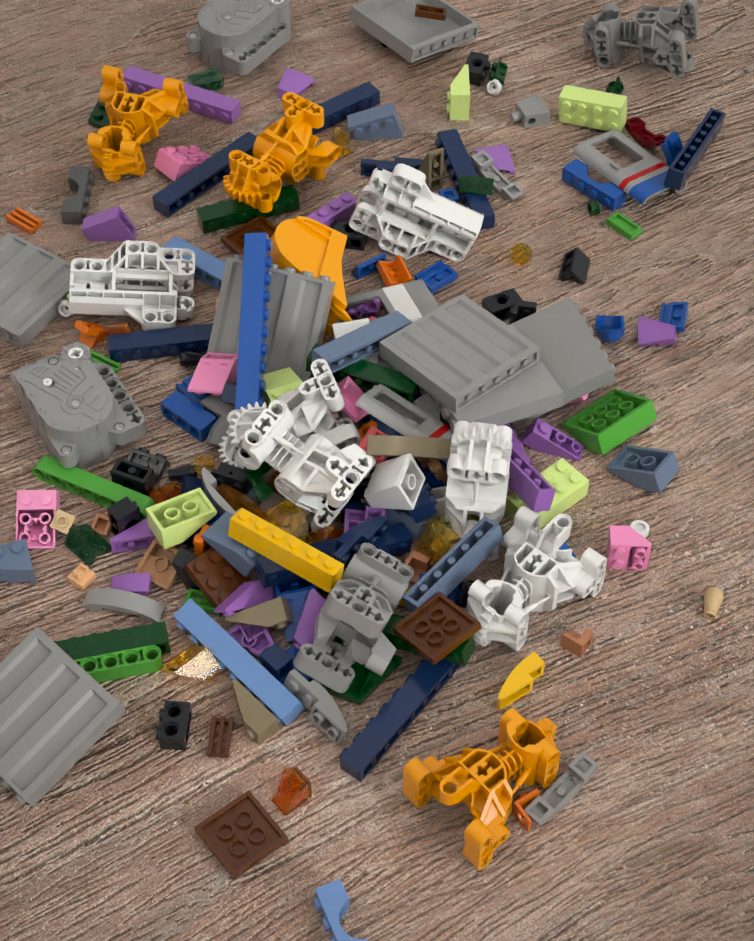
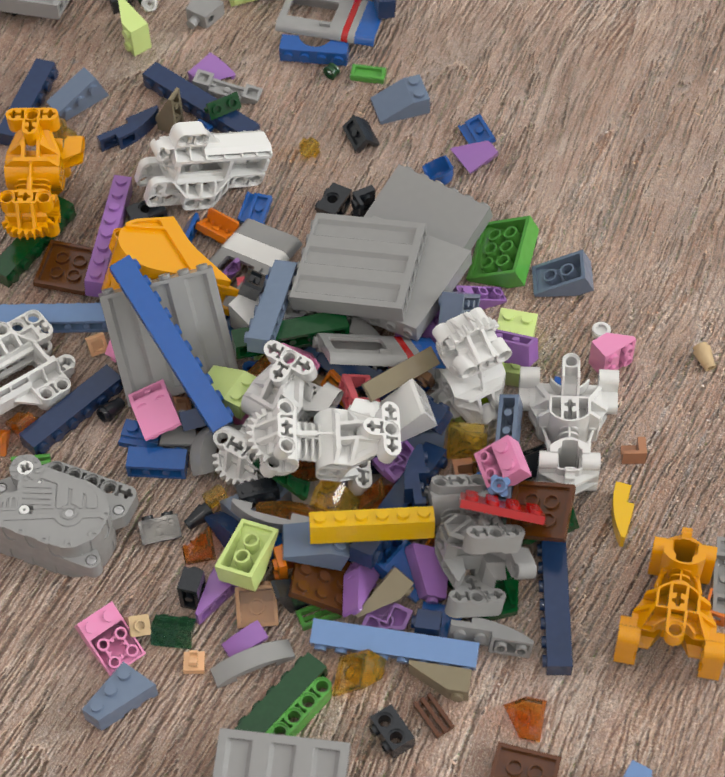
camera: 35 degrees left, 5 degrees up
(88, 485) = (127, 579): bright green beam -> none
(101, 524) = (170, 605): nougat slope -> none
(133, 476) = (161, 547): black brick -> none
(361, 316) = (252, 284): none -> black slope
(389, 595) = (509, 508): none -> red plate
(407, 578) = (502, 491): none -> medium blue plate
(435, 569) = (503, 459): none -> bright pink slope
(525, 433) = (456, 303): none -> sand blue wedge
(632, 259) = (401, 100): none -> sand blue slope

